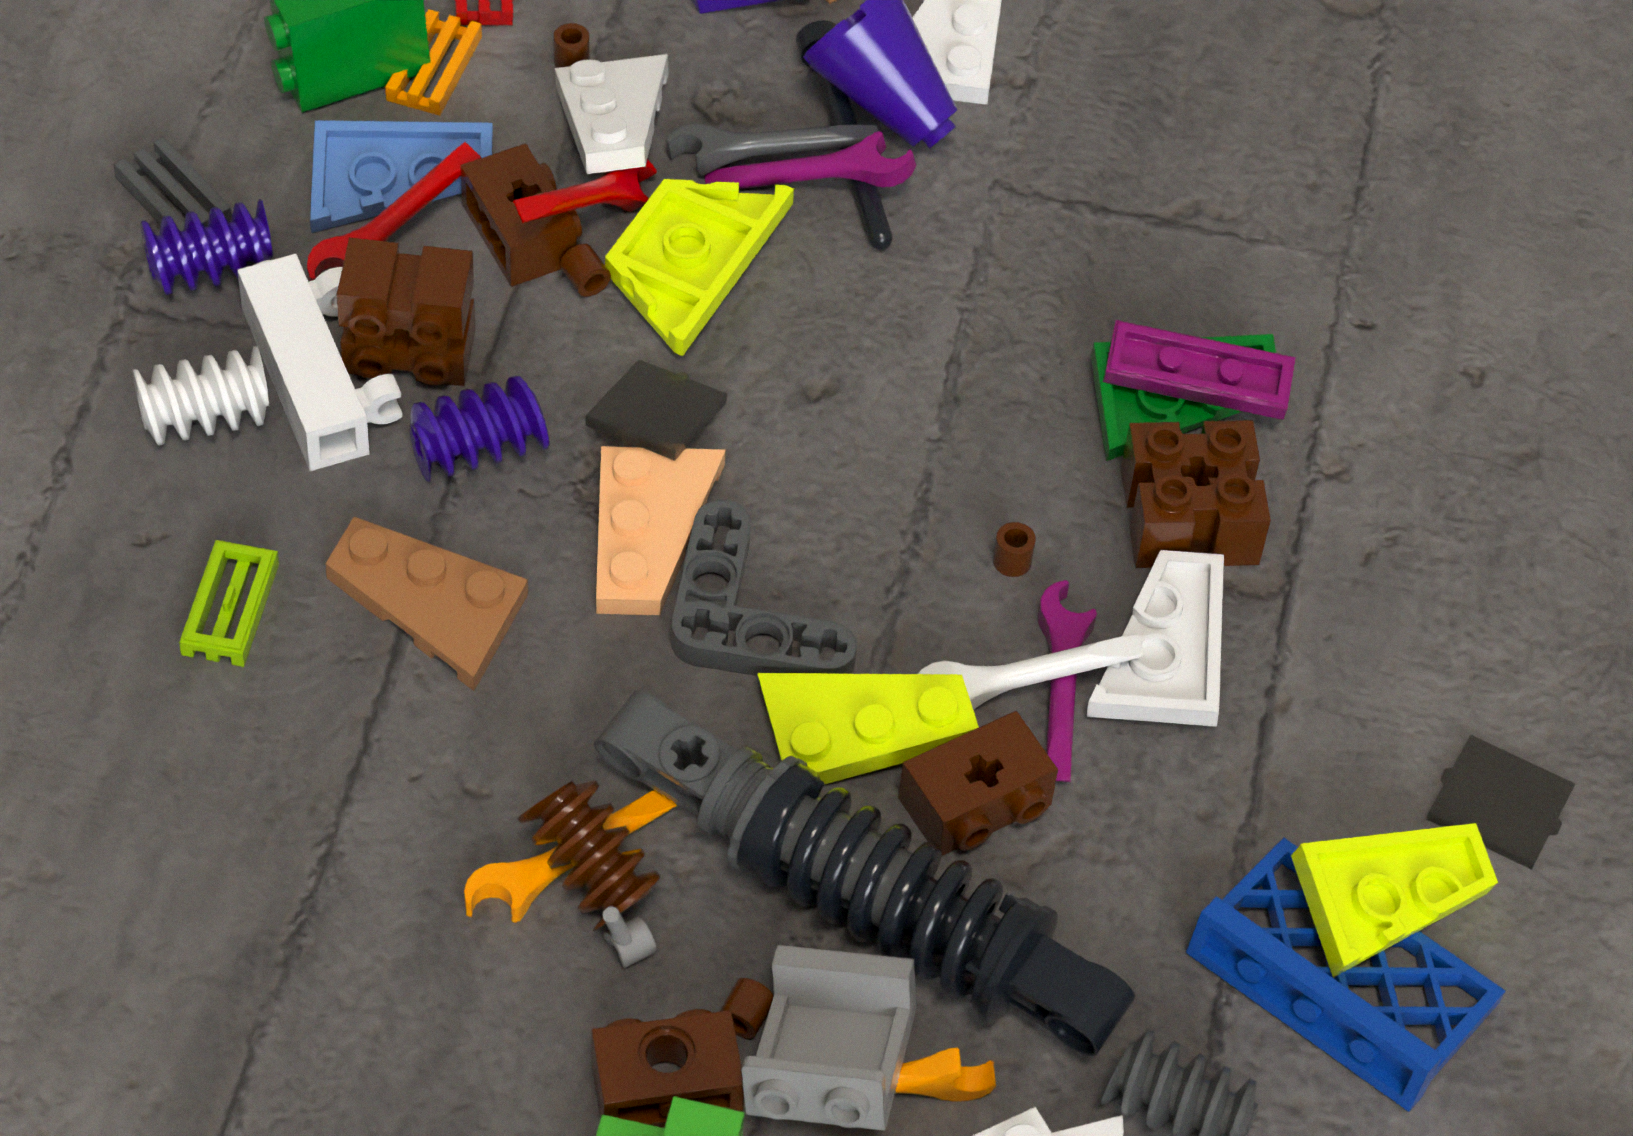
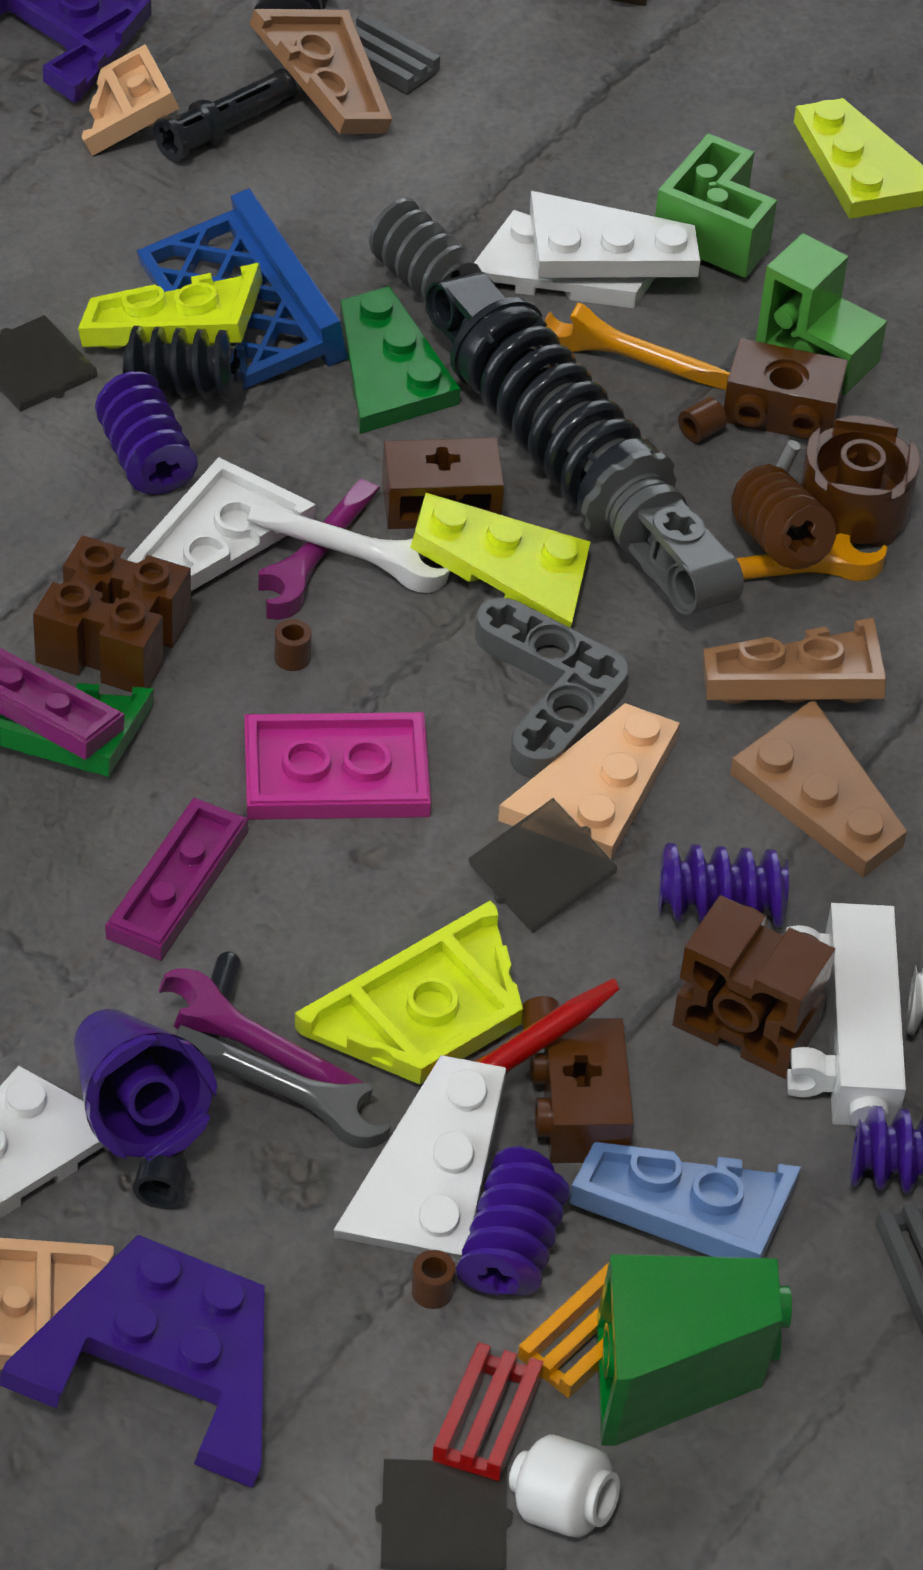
camera: 155 degrees left, 5 degrees down
(332, 251) = (762, 1121): red piece -> none
(499, 707) = (816, 668): none -> medium nougat wing
(524, 83) = (514, 1224): none -> dark purple piece
(526, 947) = (862, 477): none -> reddish brown brick
(832, 1038) = (664, 348): light grey panel -> none
(899, 452) = (336, 765): none -> dark pink tile
(971, 298) = (176, 879): none -> magenta tile
(1124, 928) = (391, 362): none -> green wing
(1305, 711) = (145, 433): none -> dark purple piece
(1329, 802) = (188, 367): none -> black piece

